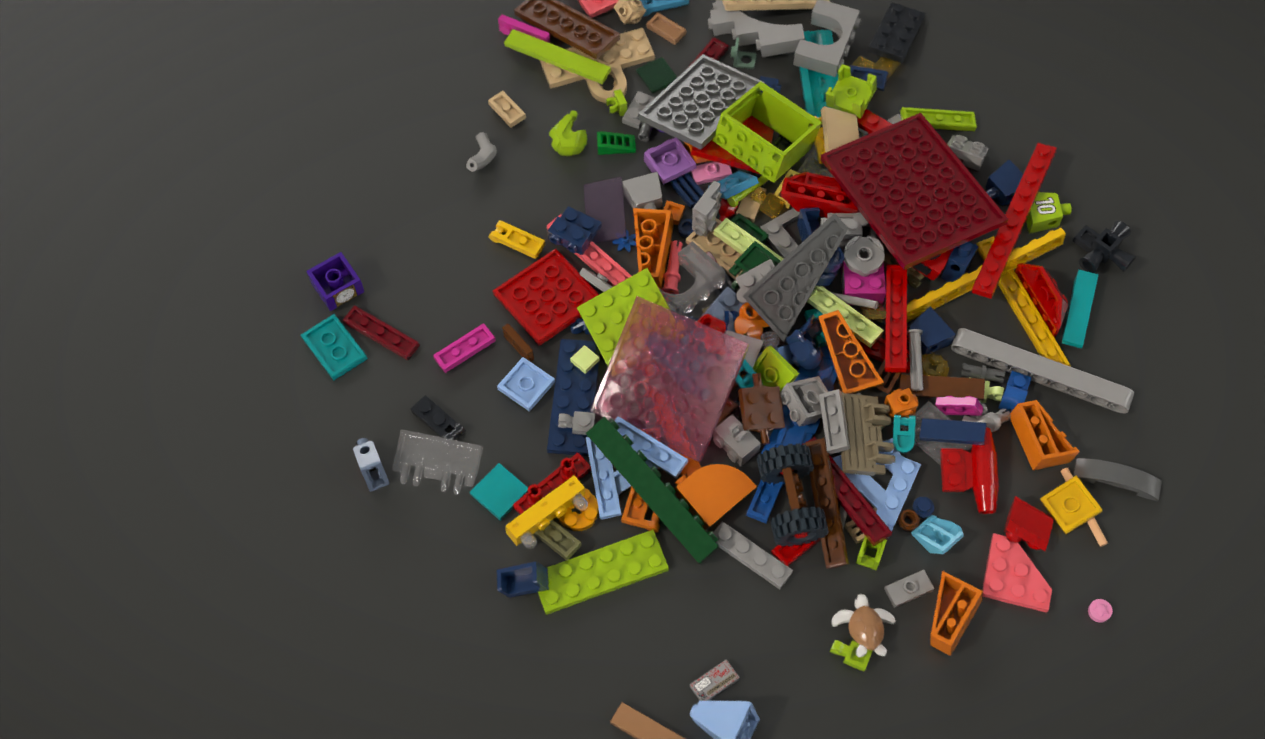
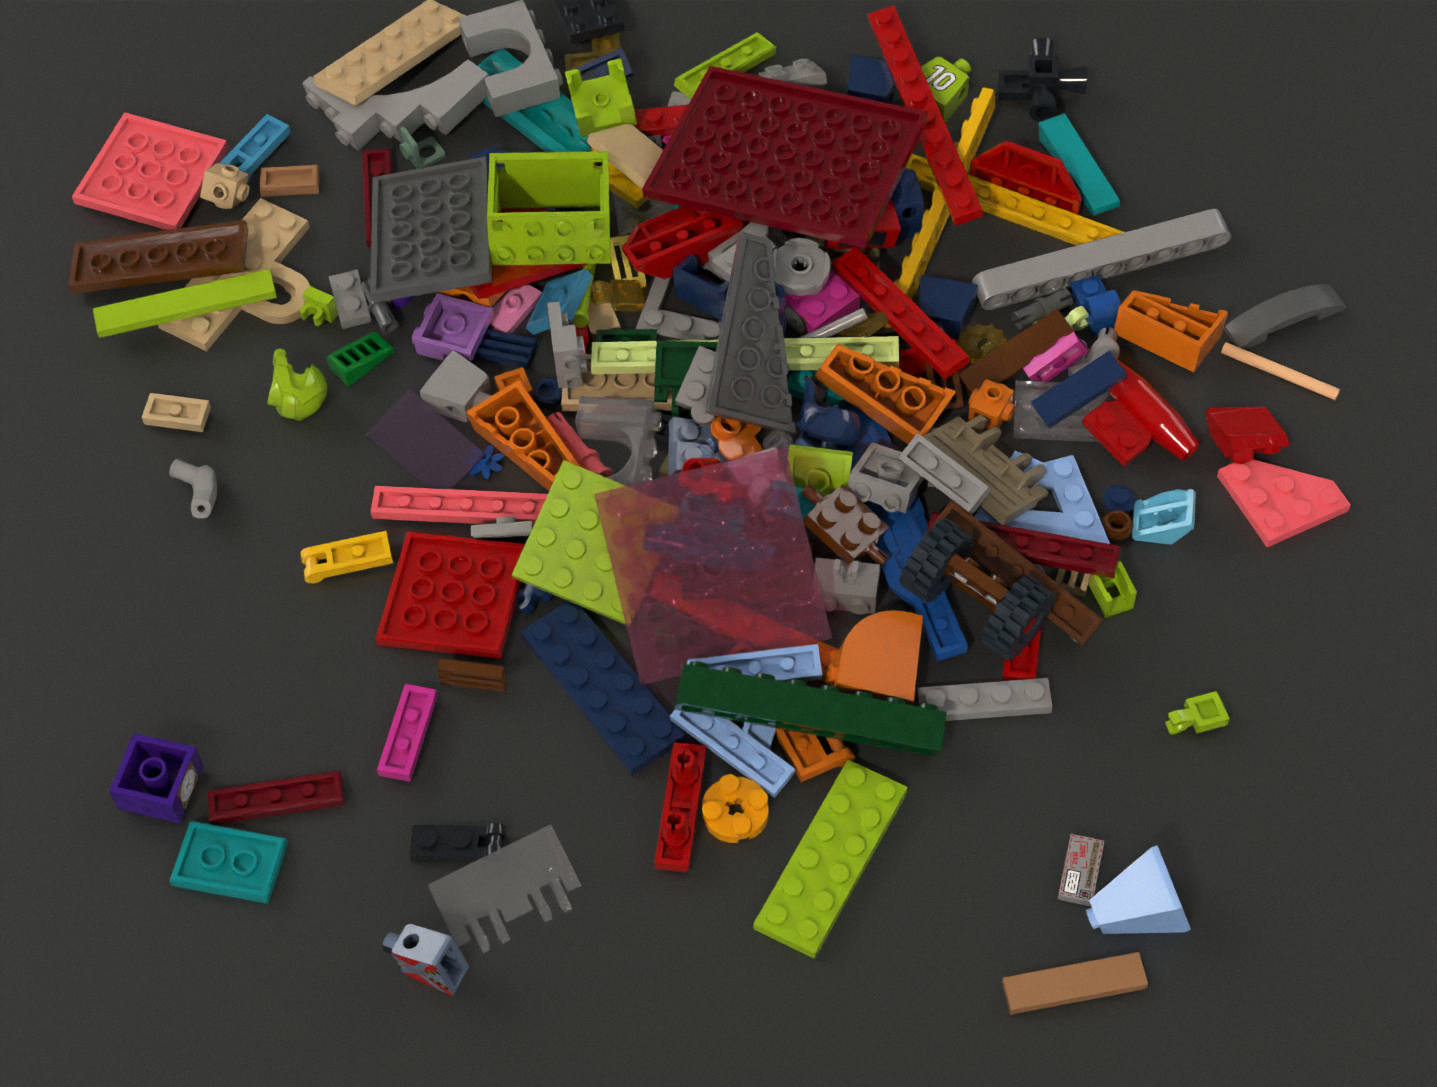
camera: 40 degrees left, 5 degrees down
(499, 491) = (619, 864): teal tile -> none
(507, 24) = (79, 310): dark pink plate -> none
(522, 579) = (755, 935): dark blue panel -> none
(526, 384) = (529, 715): light blue plate -> none
(540, 514) = (706, 835): yellow piece -> none
(559, 540) = (740, 858): olive plate -> none
(574, 230) = (415, 491): dark blue plate -> none
(580, 422) = (643, 704): light grey plate -> none
(584, 359) = (577, 629): yellowish green tile -> none
(656, 74) = (332, 242): clear green piece -> none
(865, 625) = (1184, 672): animal -> none
(904, 440) = (1032, 440): teal plate -> none
(909, 588) = (1188, 598): light grey plate -> none
(915, 359) = (976, 356): light grey axle -> none
(953, 612) = (1260, 582): orange wedge -> none
(1071, 505) = (1268, 377): yellow plate -> none
(1100, 610) = (1399, 465): bright pink tile -> none

